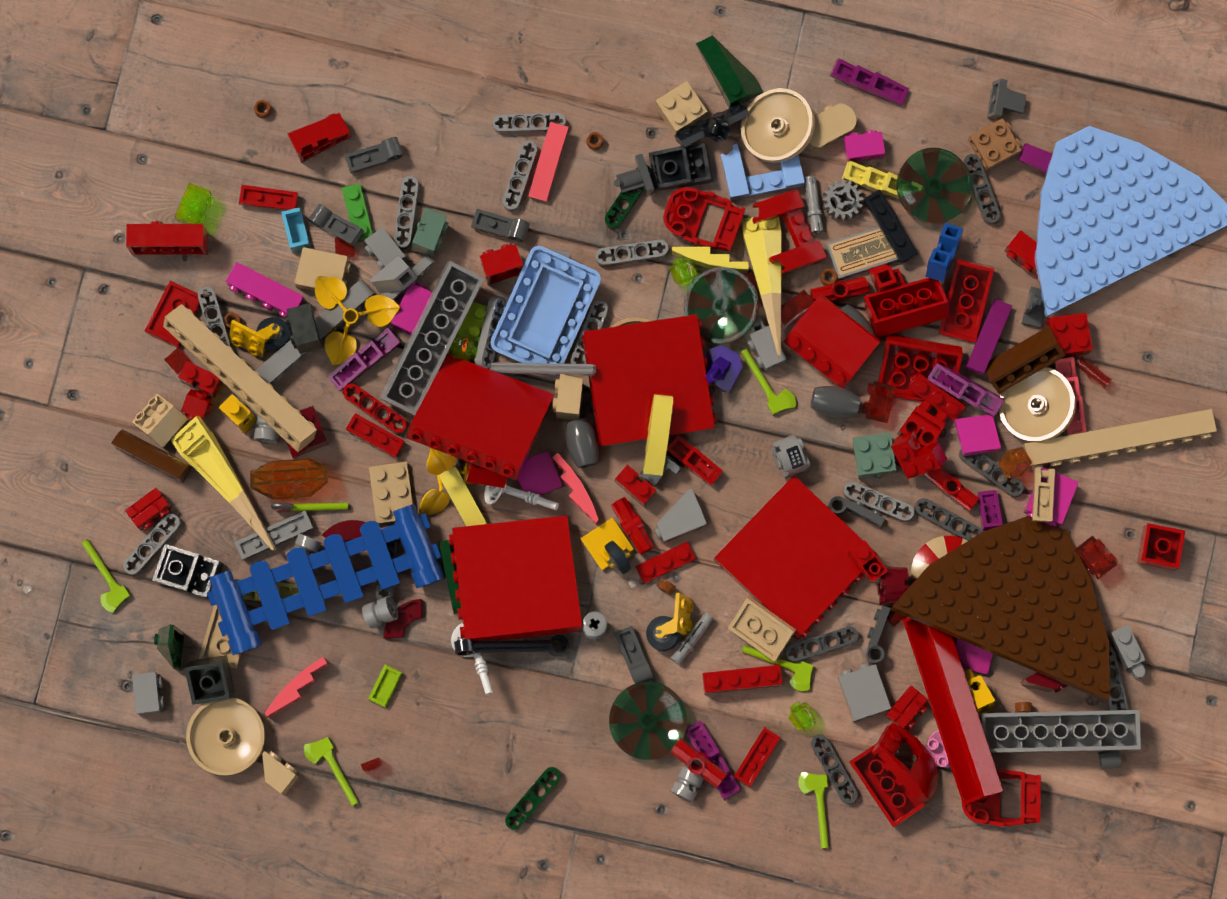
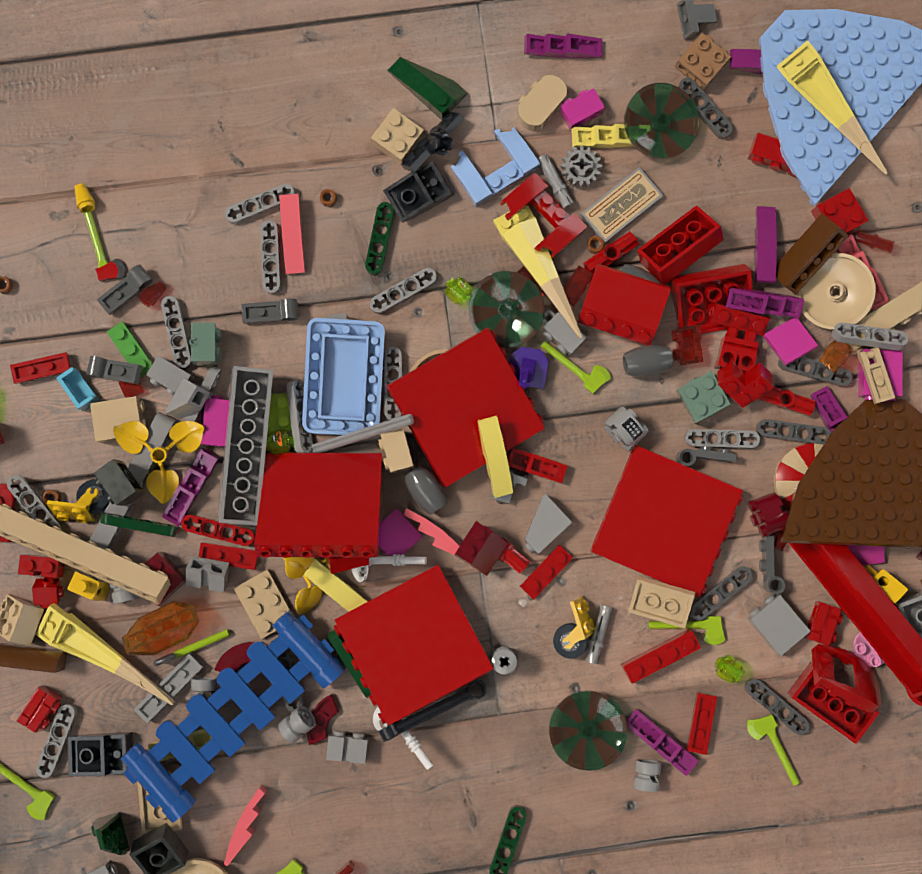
camera: 20 degrees left, 5 degrees up
(177, 360) = (13, 554): clear red tile -> none
(263, 290) = (68, 457): dark pink brick -> none
(305, 374) = (138, 524): none -> dark green beam
(319, 136) = (65, 291): red wedge -> none
(350, 443) = (208, 573): none -> light grey brick
(362, 131) = (105, 270): none -> piece
(367, 57) = (84, 200): none -> yellow cone
(385, 686) = (328, 790): lime tile -> none
(397, 168) = (152, 293): none -> clear red cone
(417, 652) = (347, 747): none -> light grey brick
(501, 263) = (284, 348): red brick -> none
(609, 546) = (493, 585): yellow plate -> none
(612, 514) = (481, 548): none -> dark red slope
(629, 482) = (498, 515): red brick -> none
(633, 655) = (550, 672): dark grey plate -> none
(635, 178) = (380, 218): dark grey piece -> none
(666, 586) = (555, 595): dark orange axle -> none
(687, 209) = (438, 232): red slope -> none
(702, 257) = (472, 270): light yellow slope -> none
(708, 770) = (660, 757): red piece -> none
(778, 125) = (494, 118): tan dish -> none
(867, 561) = (738, 502): red slope -> none
(885, 277) = (649, 225): red brick -> none
(890, 226) = (635, 175): black tile -> none
(944, 254) = (696, 180): blue arch -> none
(967, 299) = (732, 210): red slope -> none
(1034, 309) = (796, 201): dark grey piece -> none
(1052, 453) = (869, 332): none -> light grey beam
(1087, 199) = (812, 79): none -> light yellow plate

